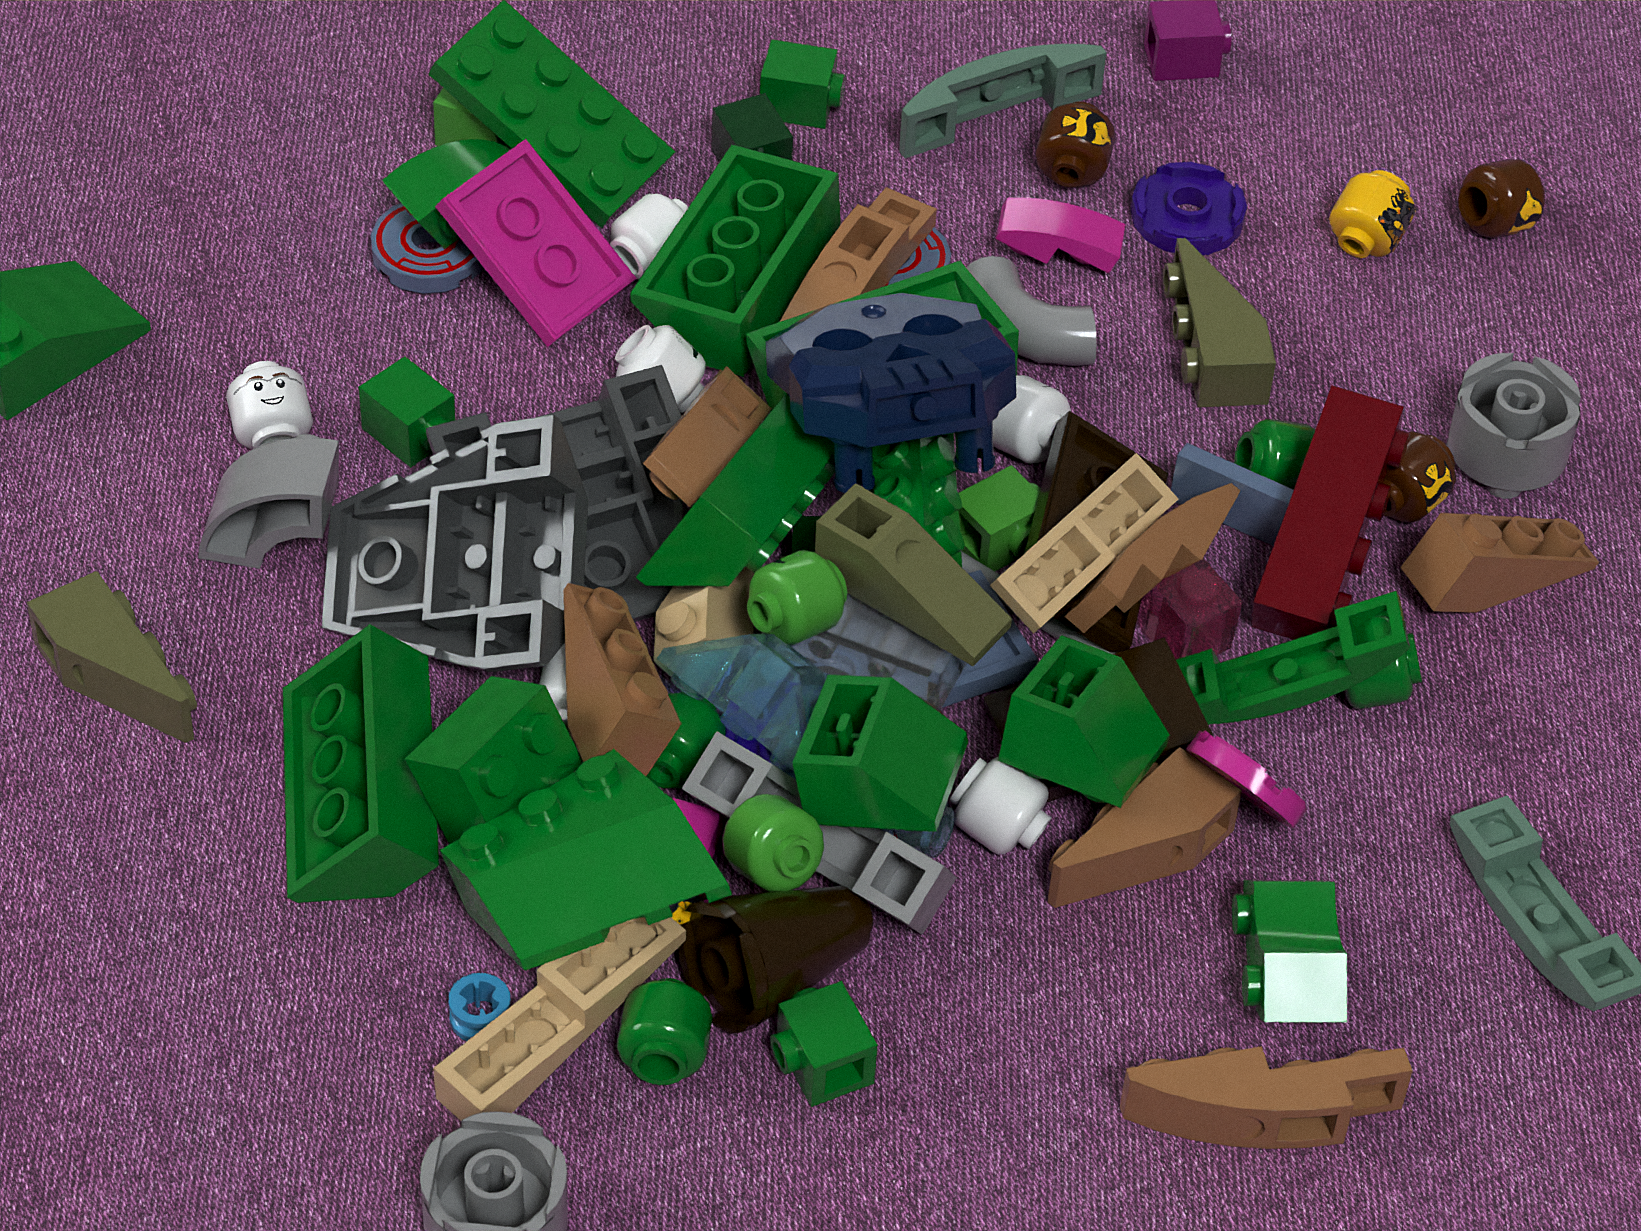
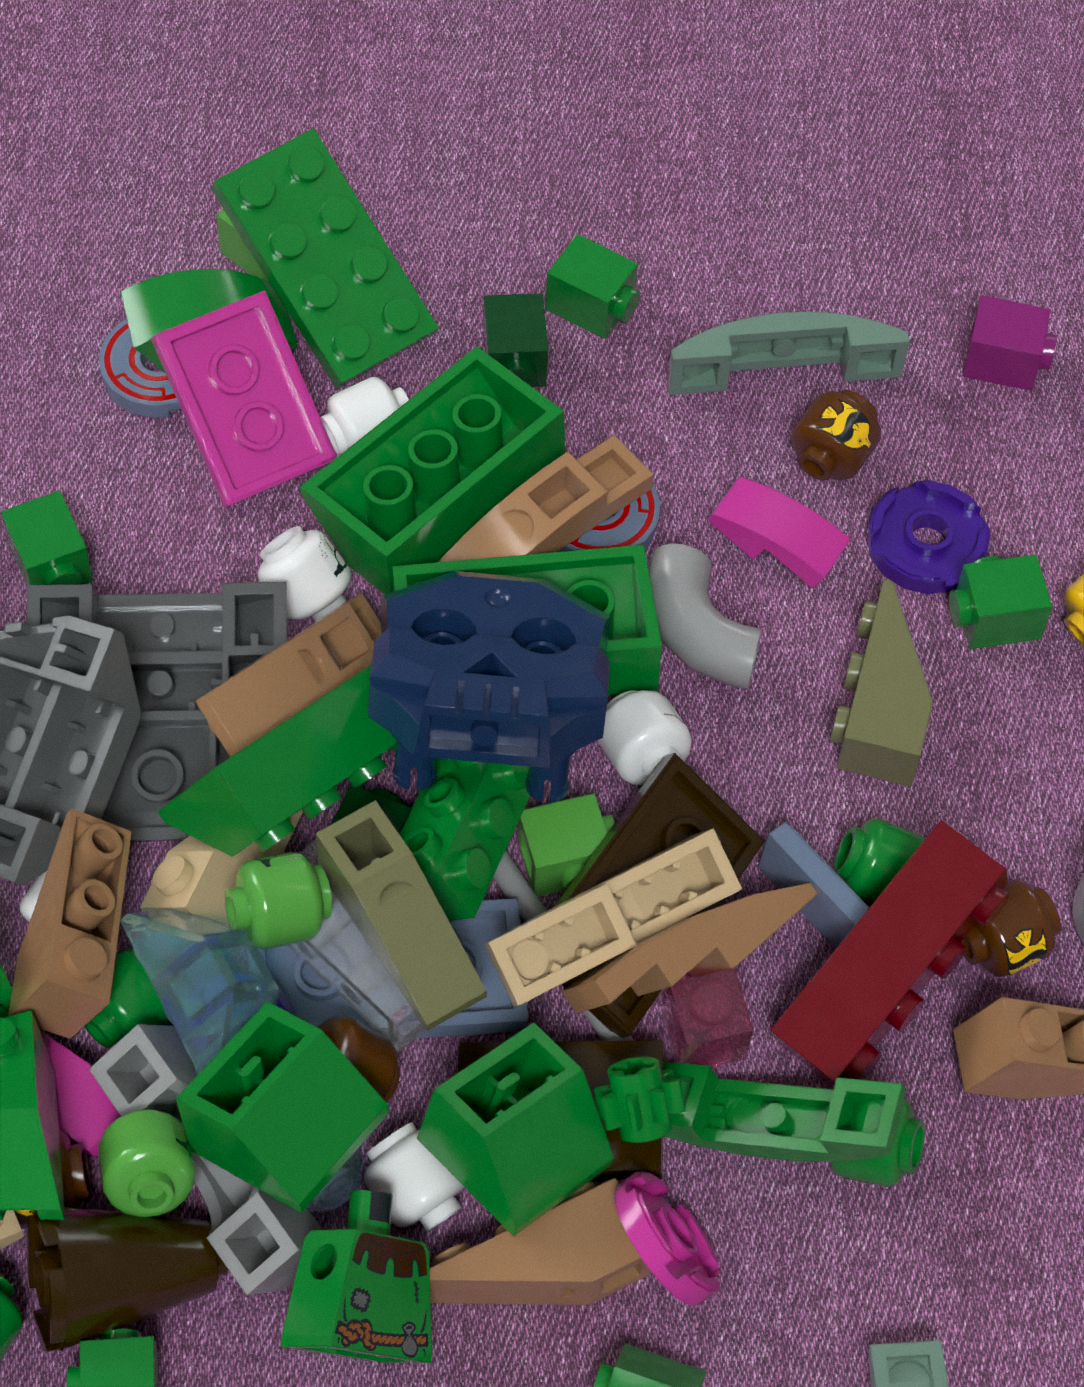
camera: 20 degrees right, 10 degrees up
(1010, 890) = (362, 1290): none -> green torso
(1176, 674) = (639, 1099): none -> green gear
(1280, 237) = (1001, 601): none -> green brick

